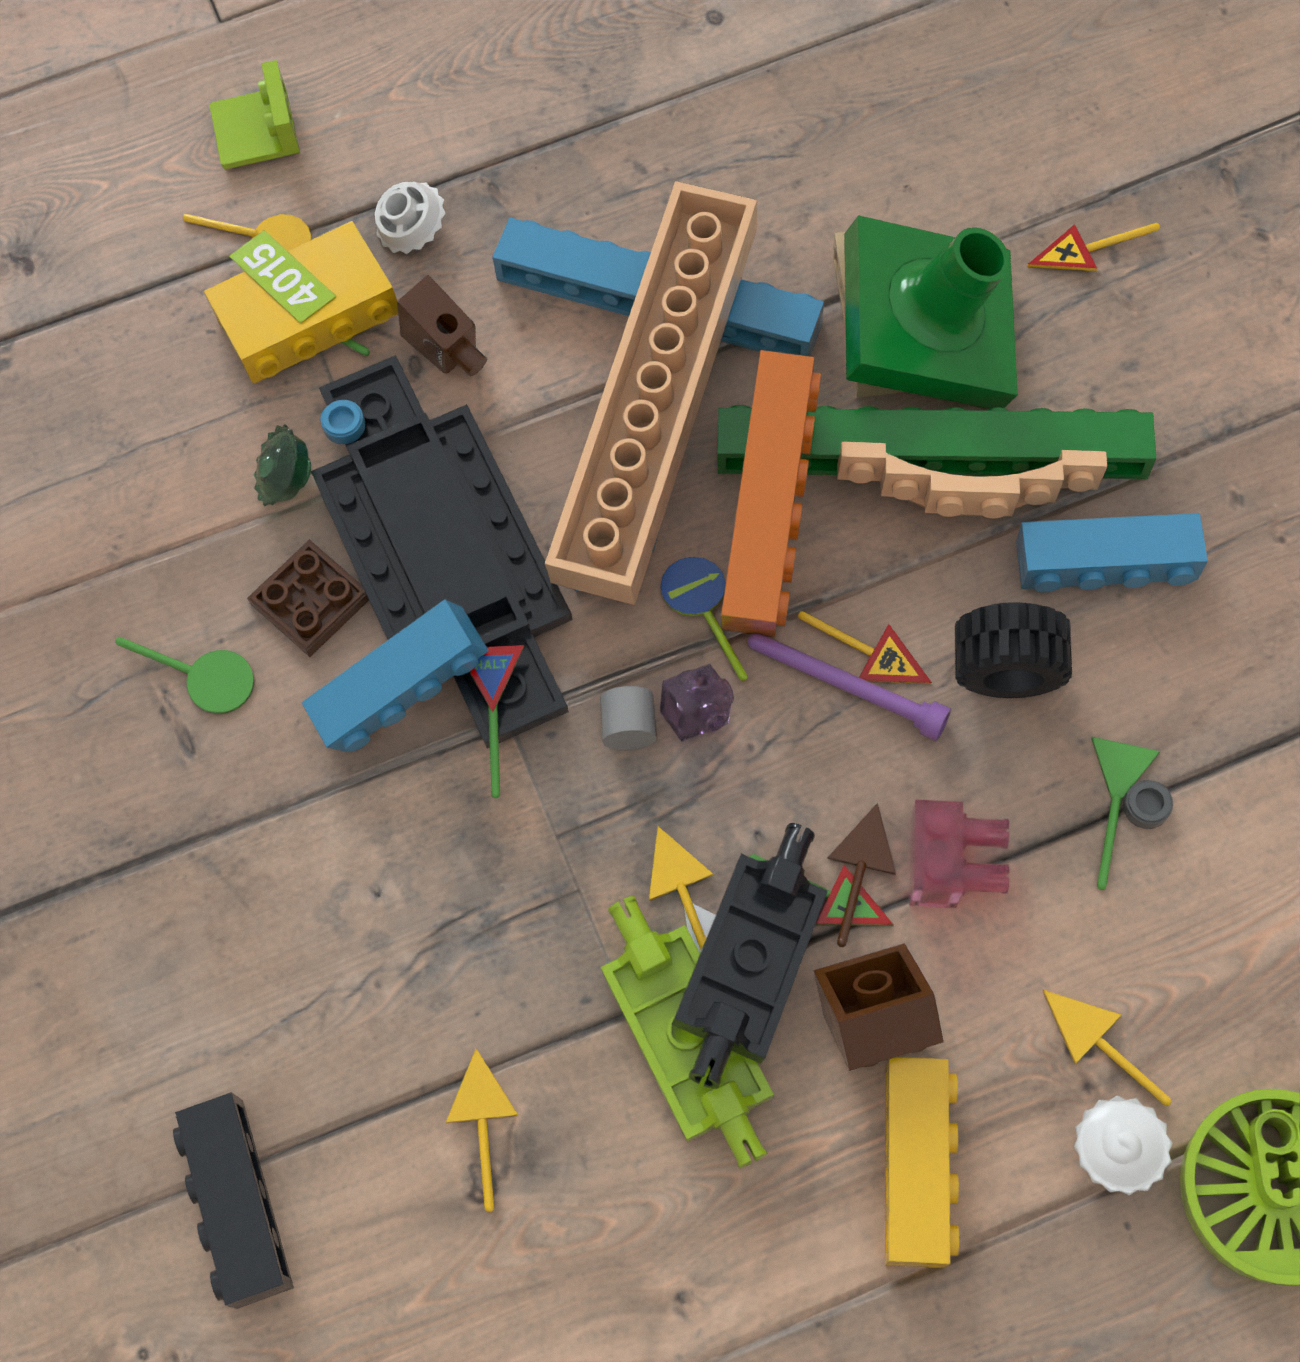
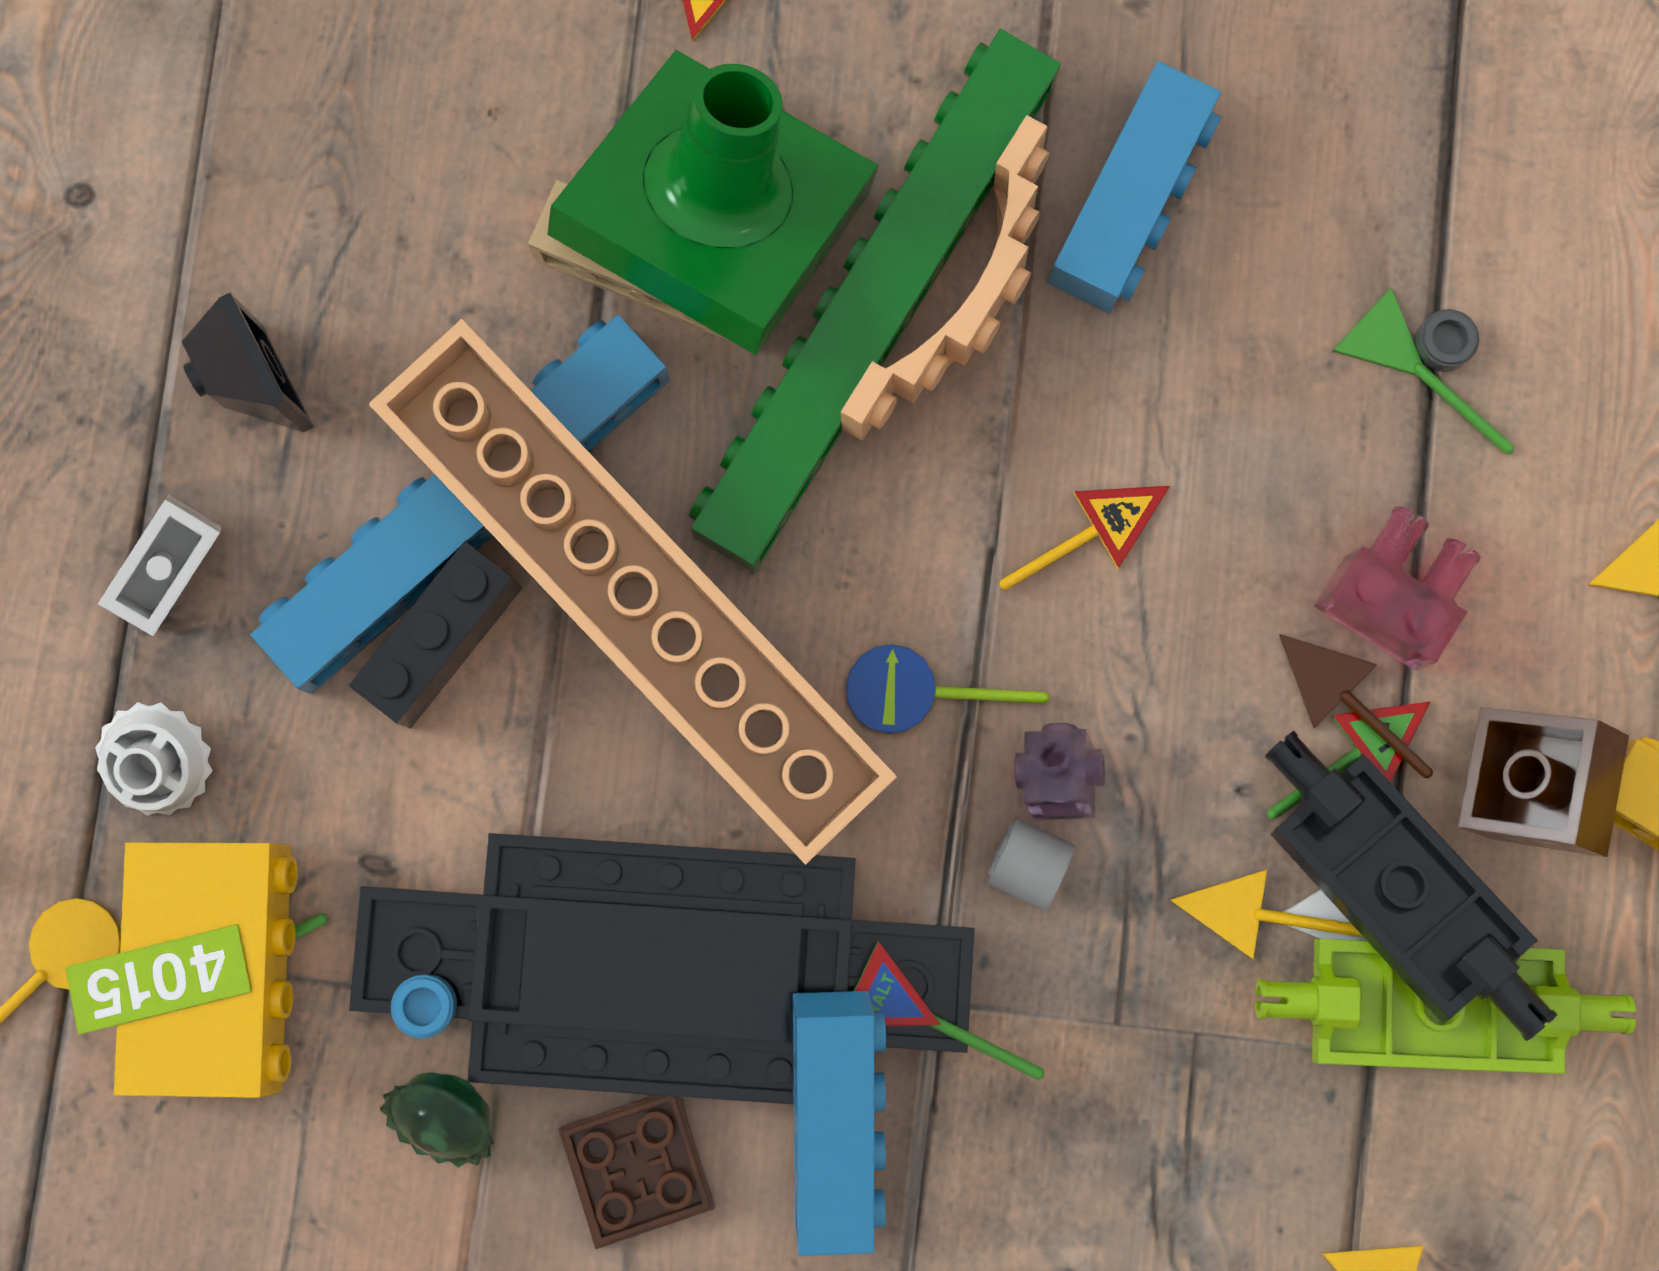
camera: 70 degrees left, 15 degrees up
(439, 328) = (337, 815): reddish brown torso -> none
(523, 155) = (160, 565): none -> white brick
(565, 315) = (436, 636): none -> black brick
(667, 136) = (240, 366): none -> black slope
(767, 494) = (867, 540): orange brick -> none
(926, 717) = (1218, 517): medium lavender piece -> none
(1013, 650) = (1215, 378): black tyre -> none

